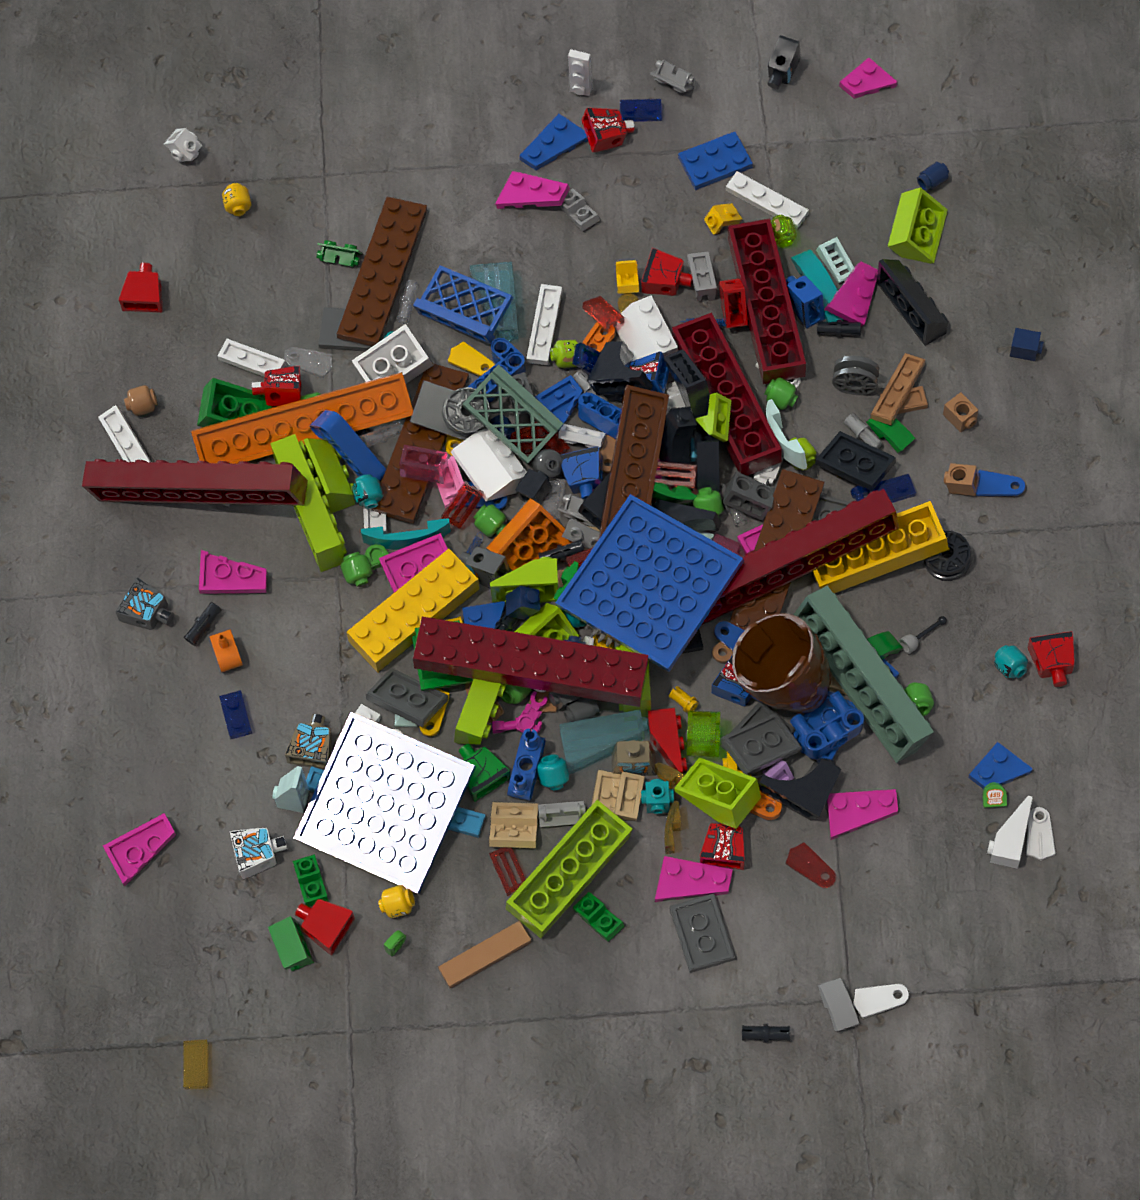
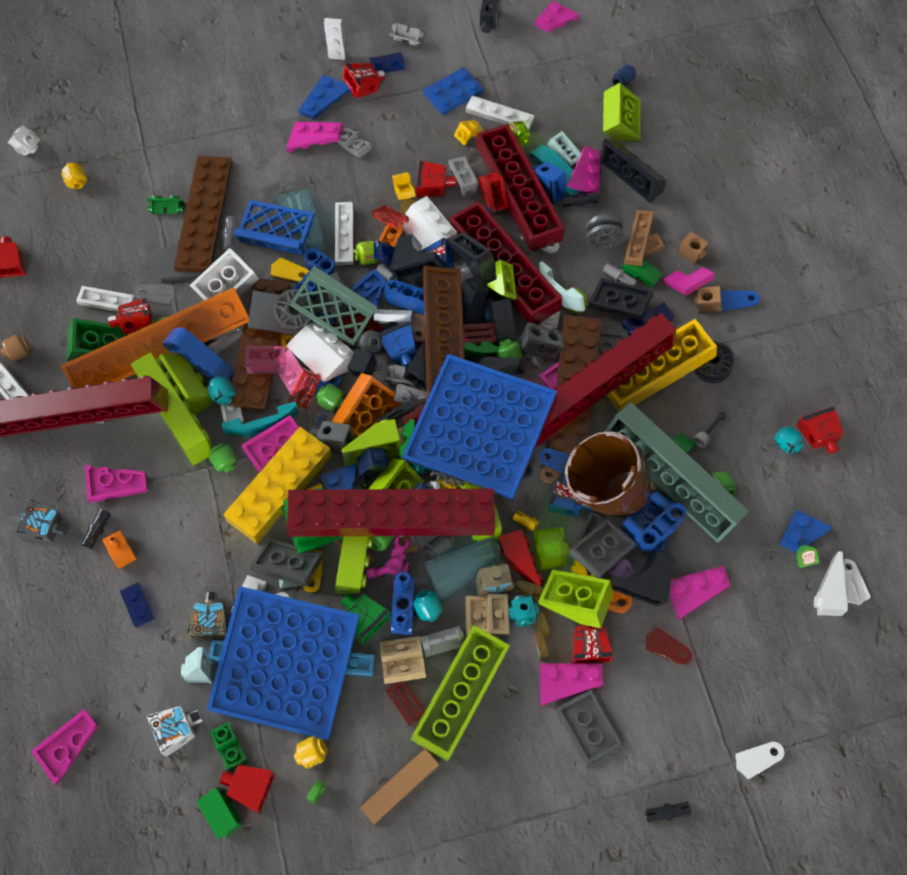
camera: 15 degrees left, 0 degrees up
(373, 554) = (236, 442): bright green tile -> none
(598, 917) = (494, 730): green slope -> none
(781, 393) = (548, 255): bright green head -> none
(838, 1003) = (726, 771): light grey slope -> none
(940, 456) = (688, 284): none -> dark pink tile
(1026, 344) = (729, 188): dark blue brick -> none

